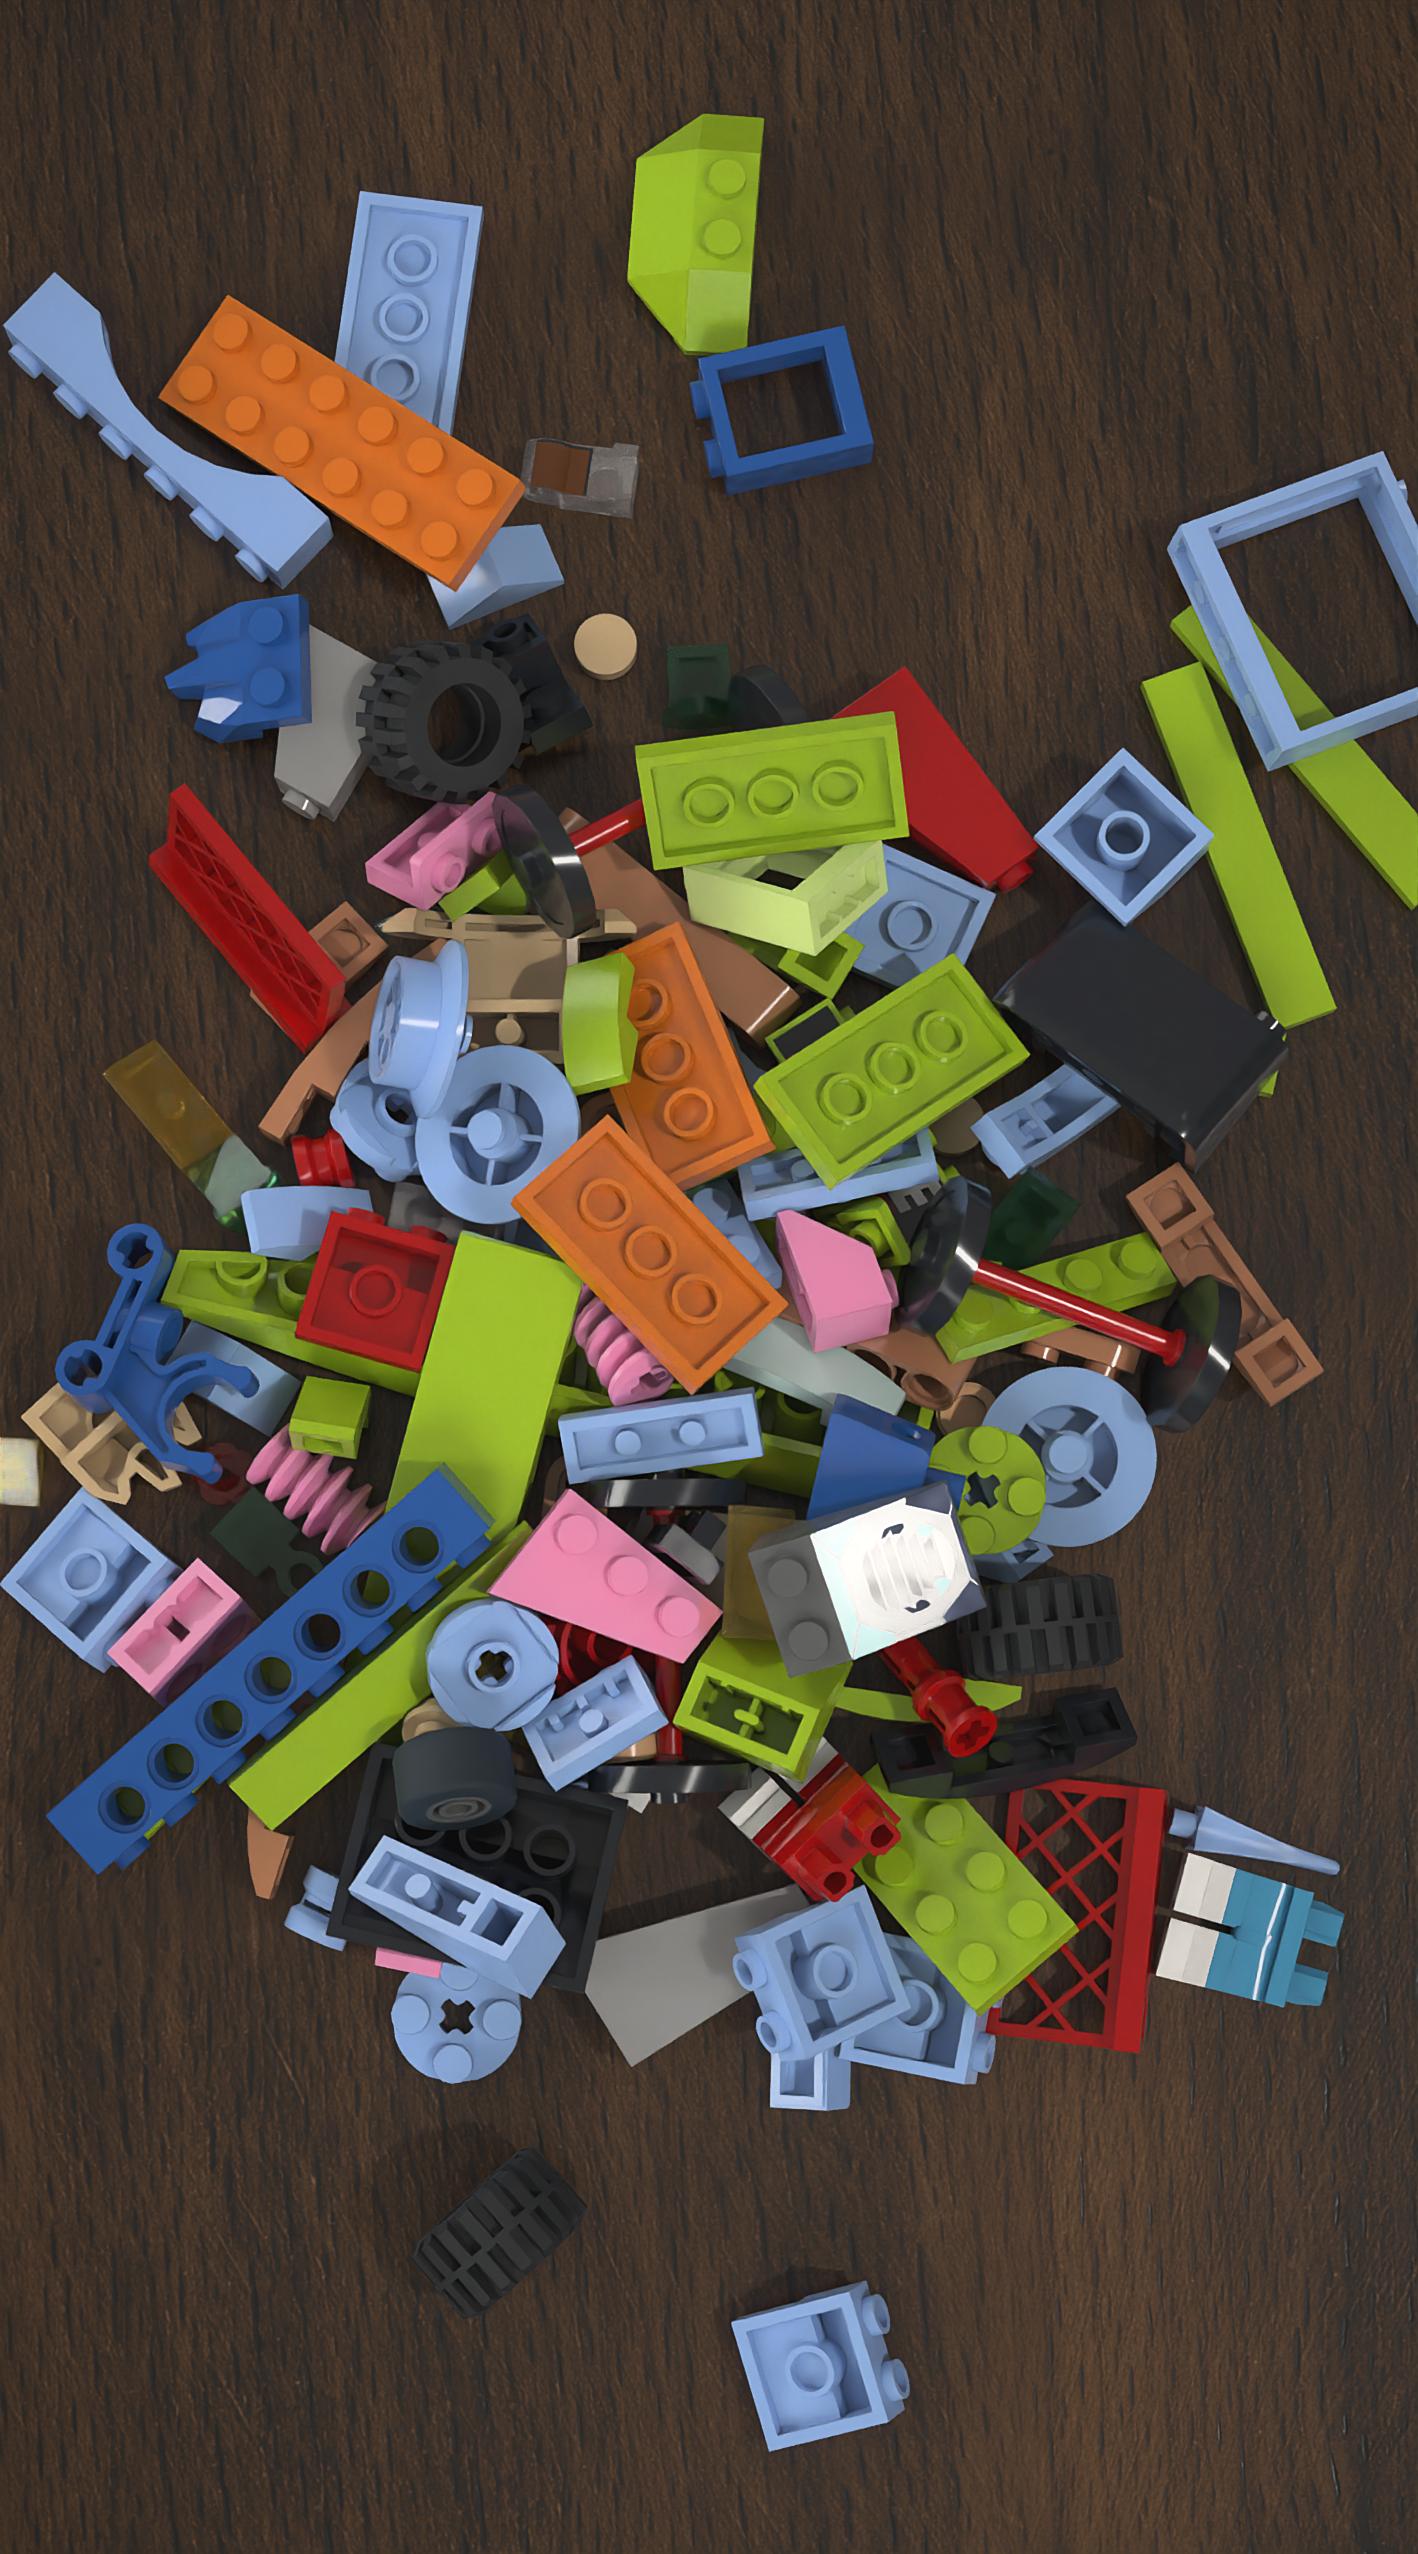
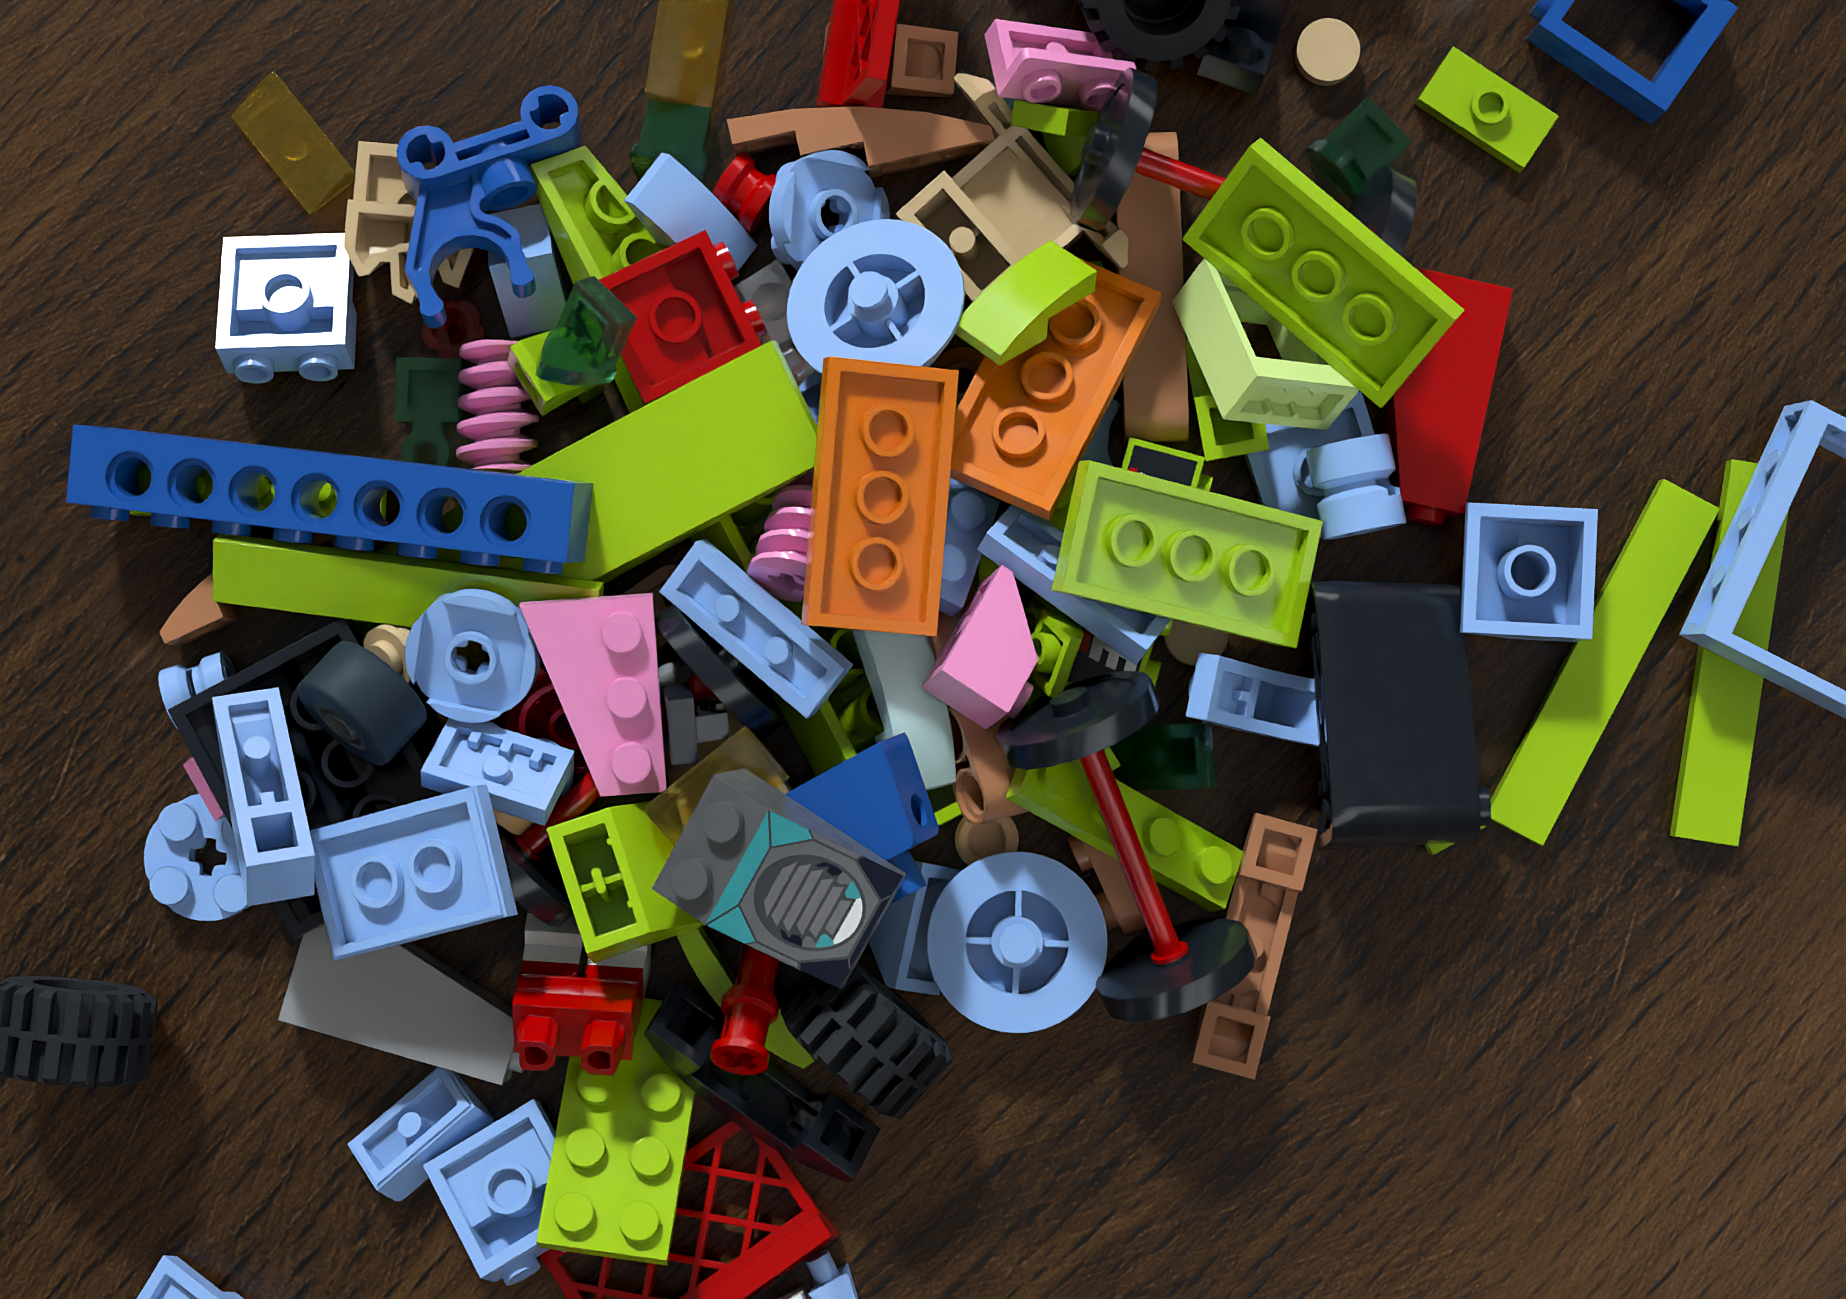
camera: 50 degrees right, 5 degrees up
(184, 1634) = (303, 406): bright pink brick -> none
(332, 1367) = (586, 338): none -> clear green tile
(421, 1026) = (905, 170): light blue wheel -> none
(617, 1852) = (411, 872): none -> light blue tile
(753, 570) = (1486, 109): none -> lime plate
(819, 1976) = (461, 1102): light blue plate -> none
(949, 906) = (1356, 486): none -> light blue wheel
(1020, 1491) = (954, 934): lime plate -> none

